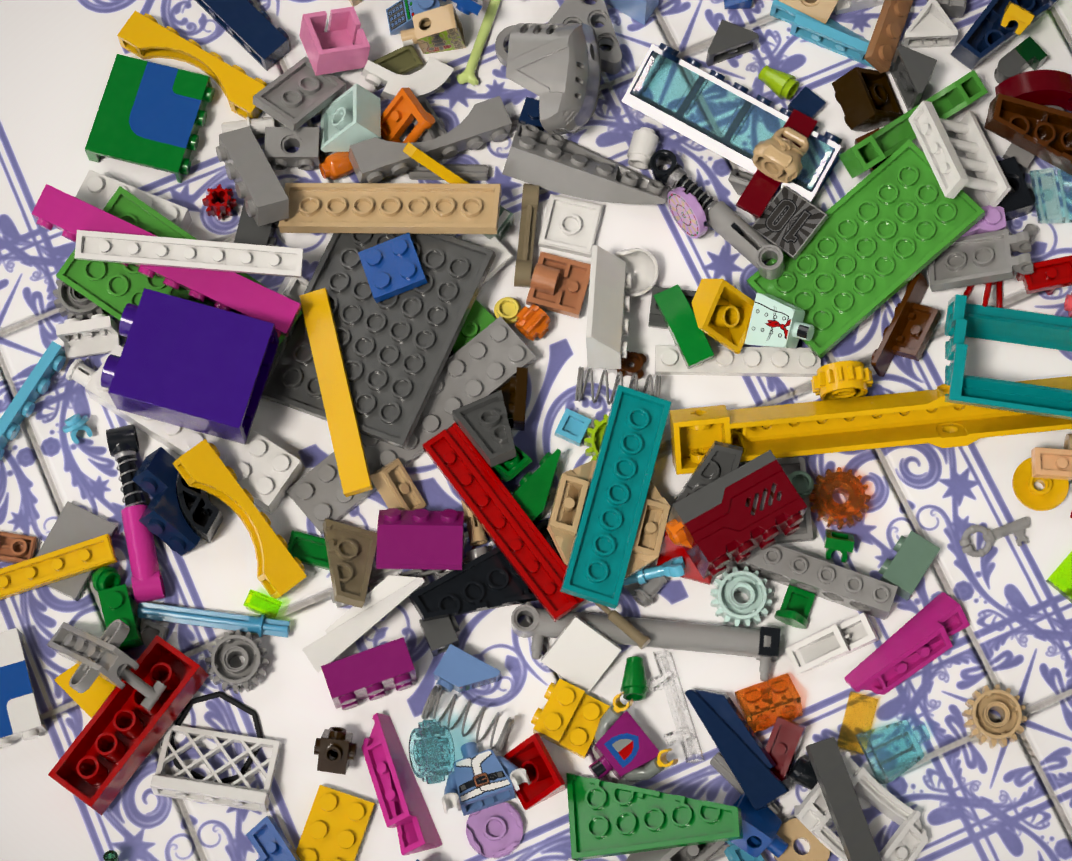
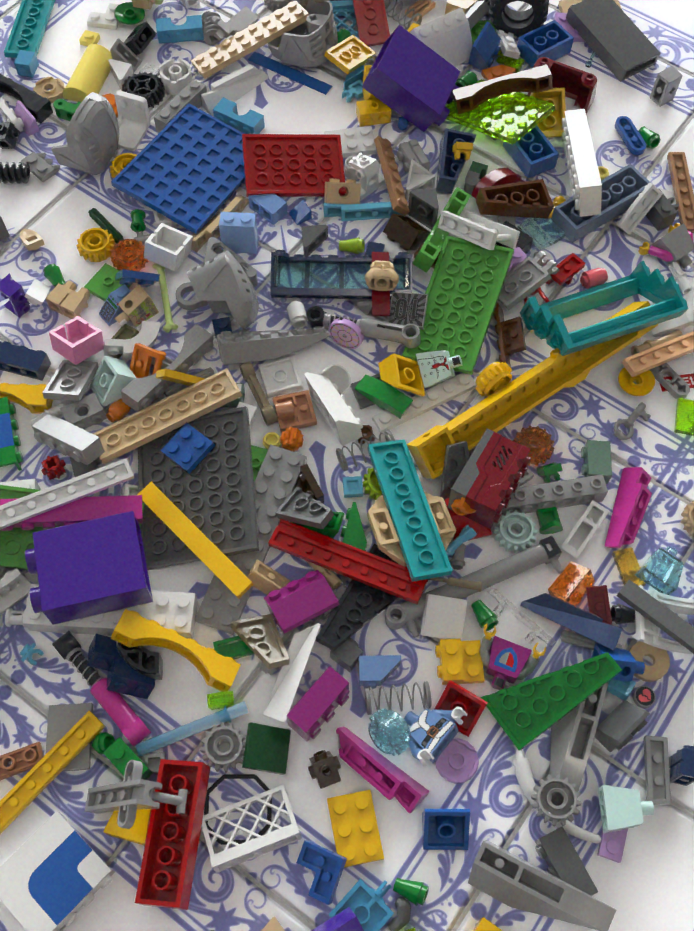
camera: 30 degrees left, 10 degrees down
(283, 690) = (266, 748): none -> dark green tile

